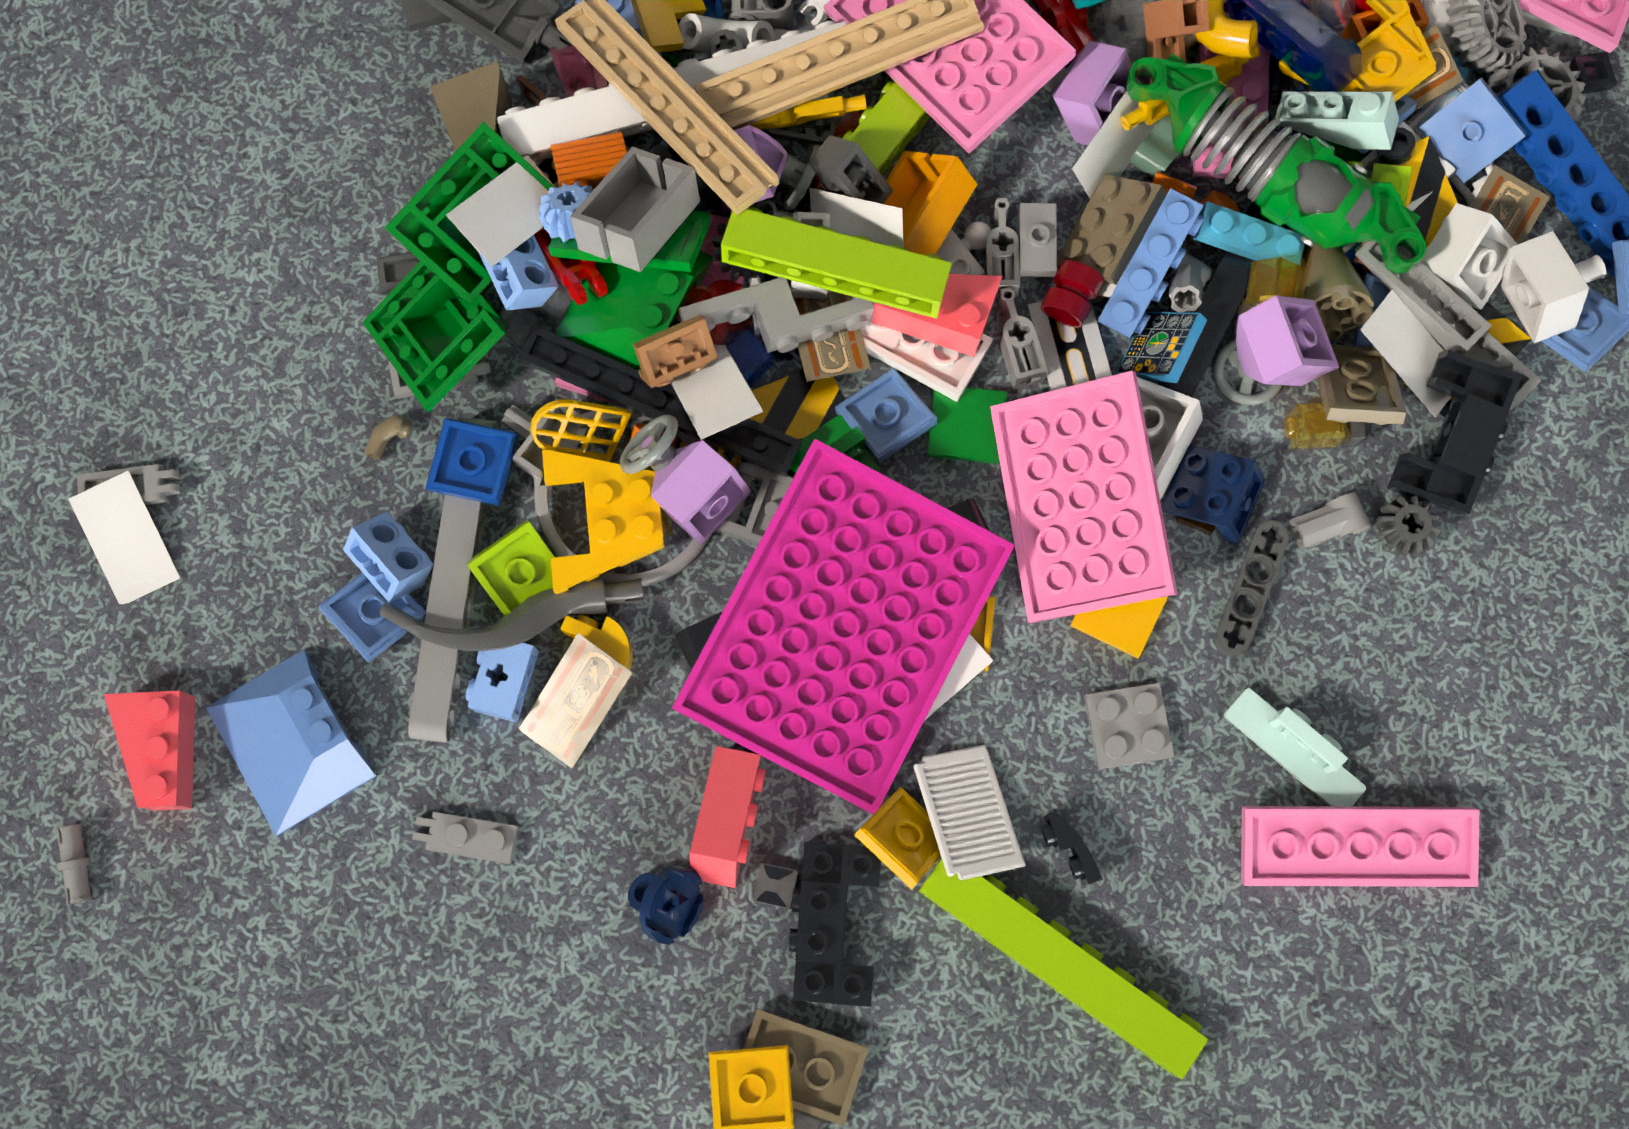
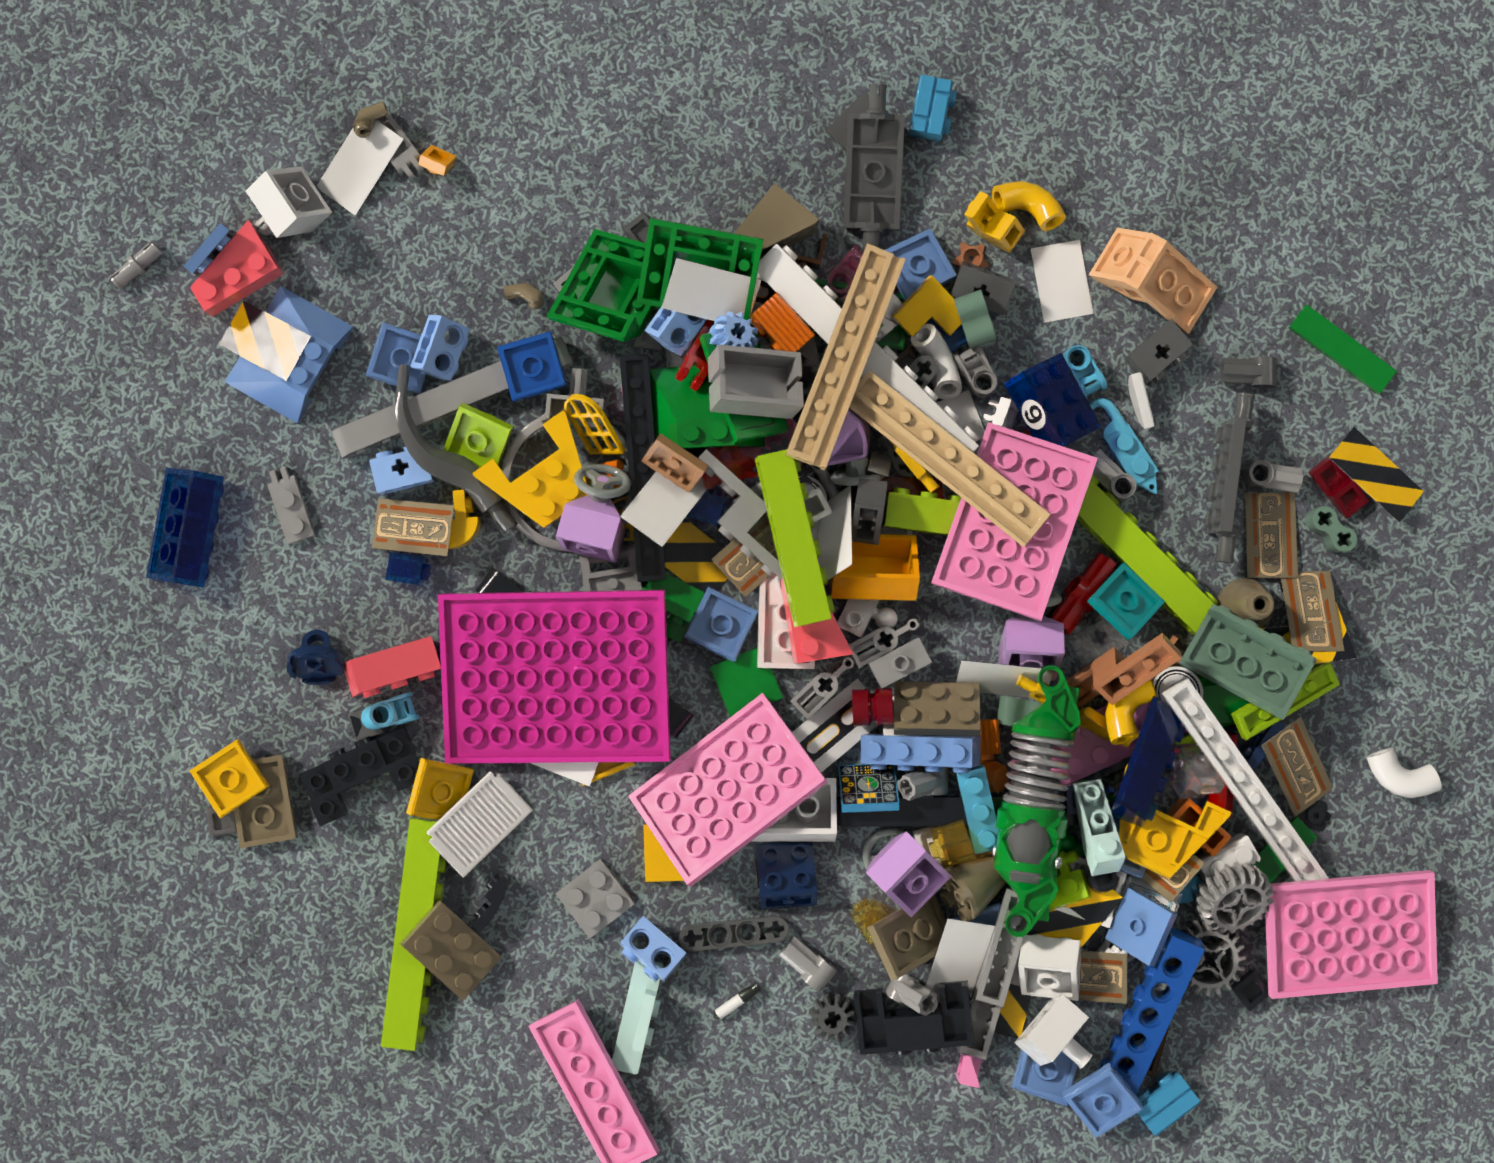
camera: 55 degrees right, 10 degrees up
(77, 496) = (366, 118): none -> dark tan arm
(105, 749) = (201, 258): none -> medium blue plate
(113, 639) = (287, 202): none -> white brick
(177, 450) = (437, 160): none -> light orange plate
(256, 756) = (265, 340): none -> sticker
(416, 977) = (185, 527): none -> clear blue slope
(621, 734) = (407, 569): none -> clear blue brick
(779, 843) = (394, 711): none -> medium azure piece
(805, 148) = (880, 464): none -> white sticker
(1106, 927) = (451, 950): none -> dark tan plate
(1222, 678) = (658, 944): none -> light blue brick
(1333, 616) = (735, 1002): none -> piece
(1425, 420) = (911, 993): none -> light grey piece
(1542, 409) = (968, 1070): none -> bright pink slope

